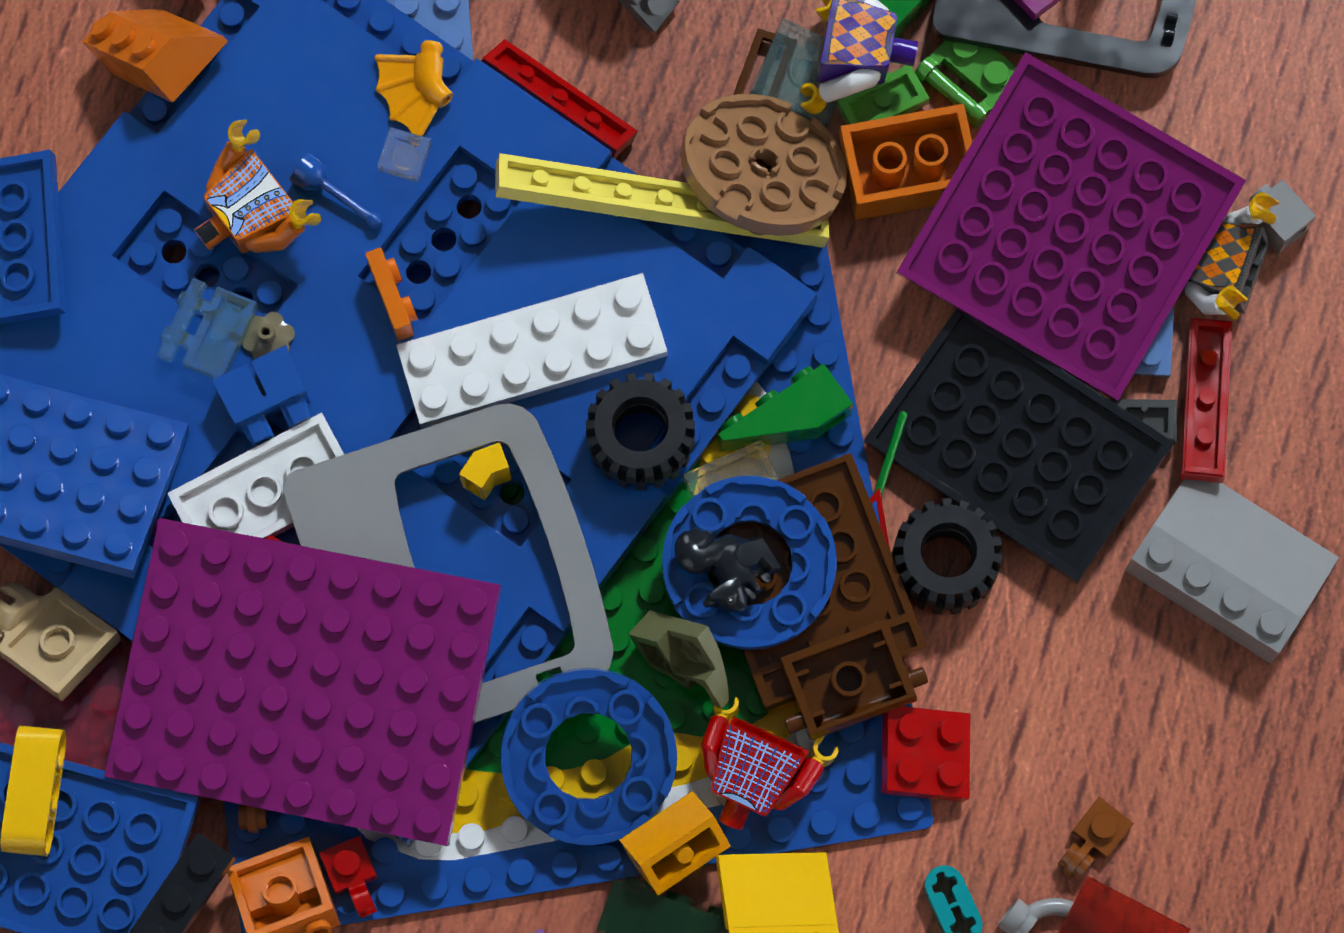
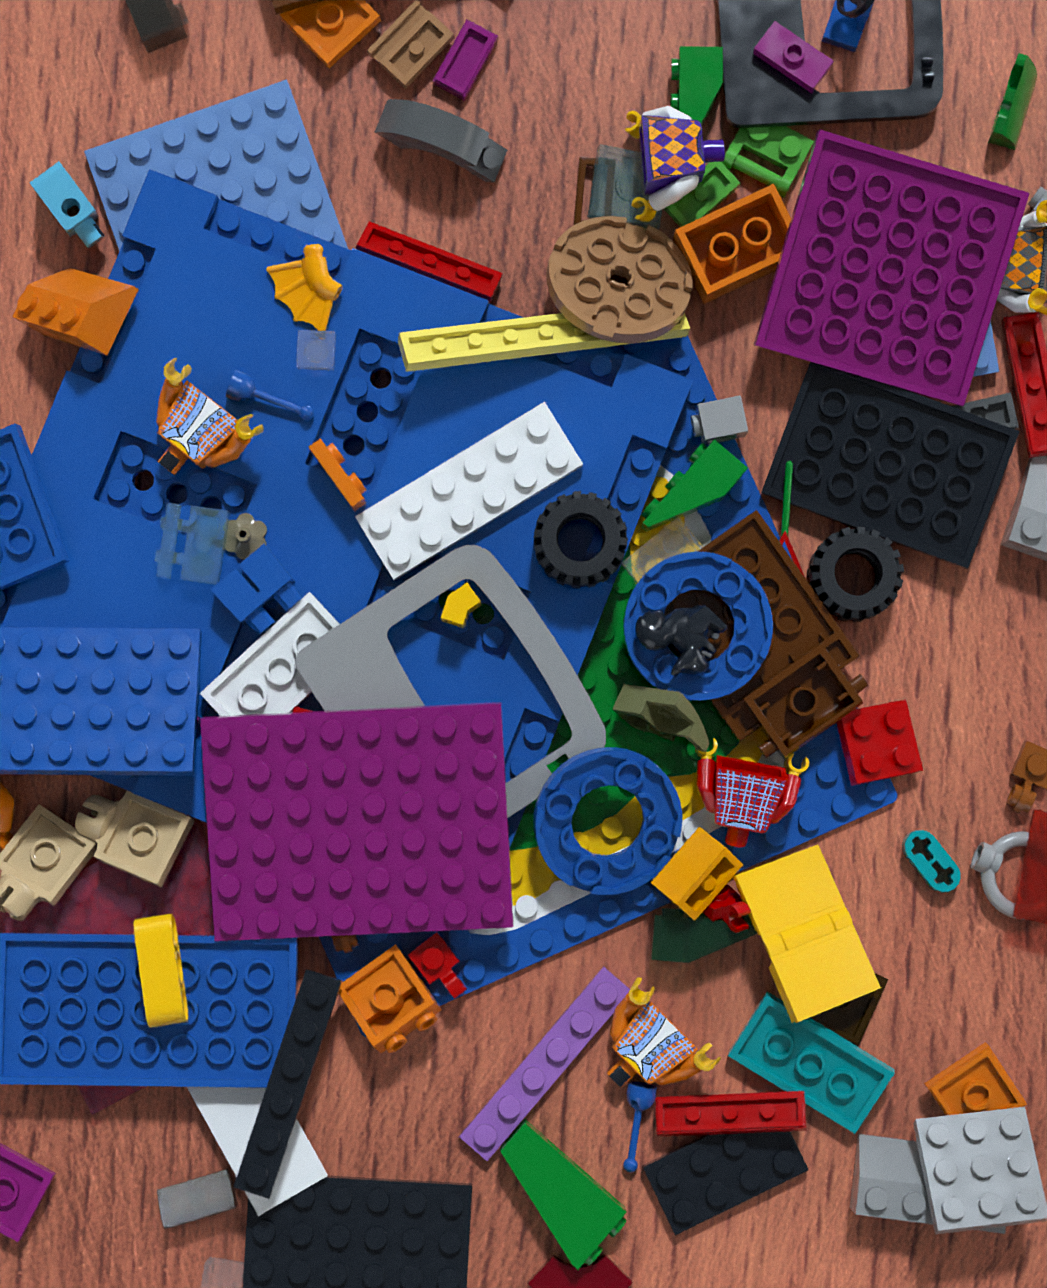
camera: 15 degrees left, 10 degrees up
(701, 891) = (730, 908): none -> red plate
(838, 346) = (720, 420): none -> light grey brick
(1260, 87) = (1014, 104): none -> green slope

